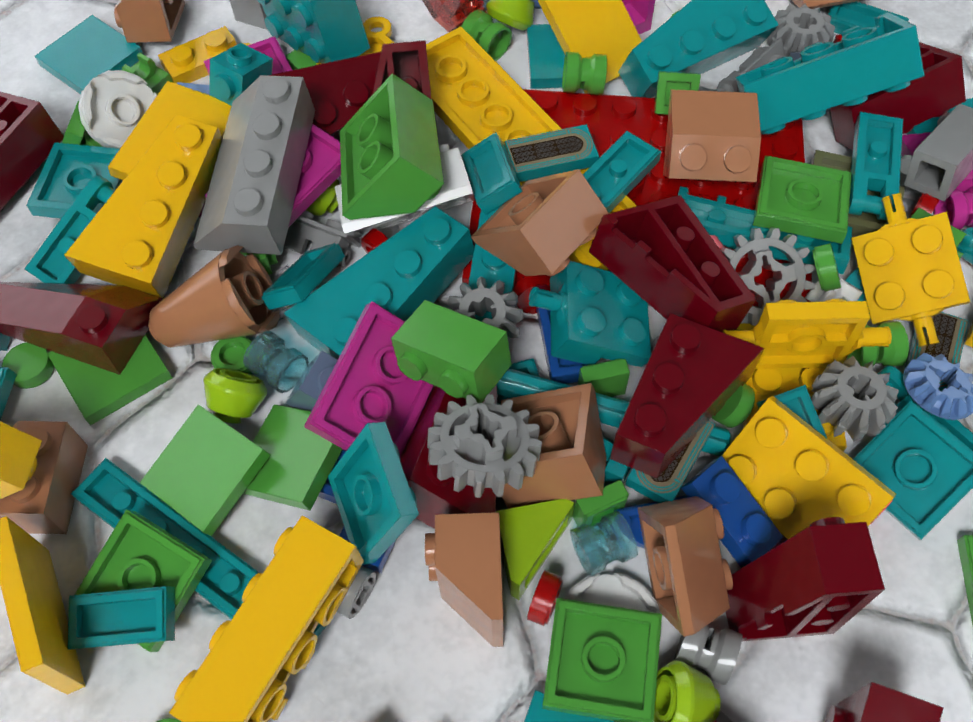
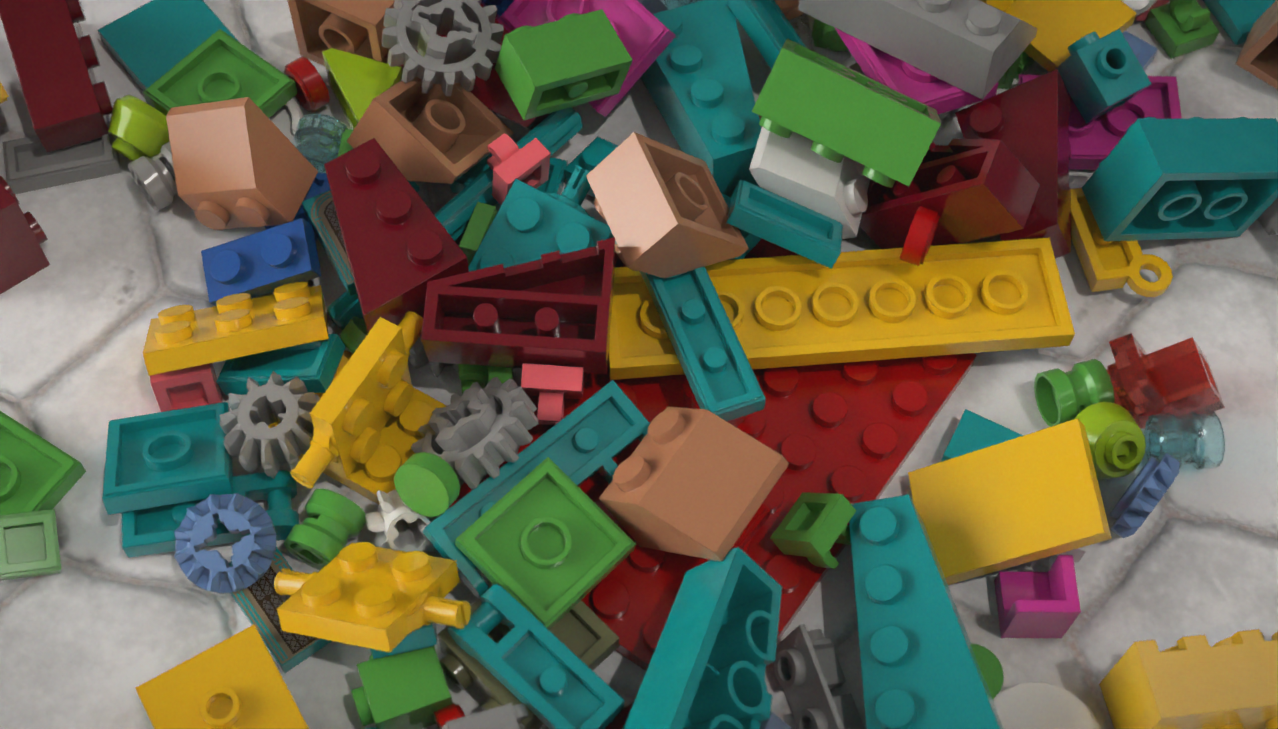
camera: 115 degrees right, 0 degrees up
(186, 61) = (1200, 81): yellow hinge -> none
(452, 101) = (920, 236): none -> red tile
(491, 300) = (599, 131): light grey gear -> none
(547, 359) = (511, 163): none -> coral tile
(552, 152) = (784, 309): tile -> none
(584, 73) = (919, 445): bright green wheel -> none
(806, 583) = (132, 241): dark red wedge -> none

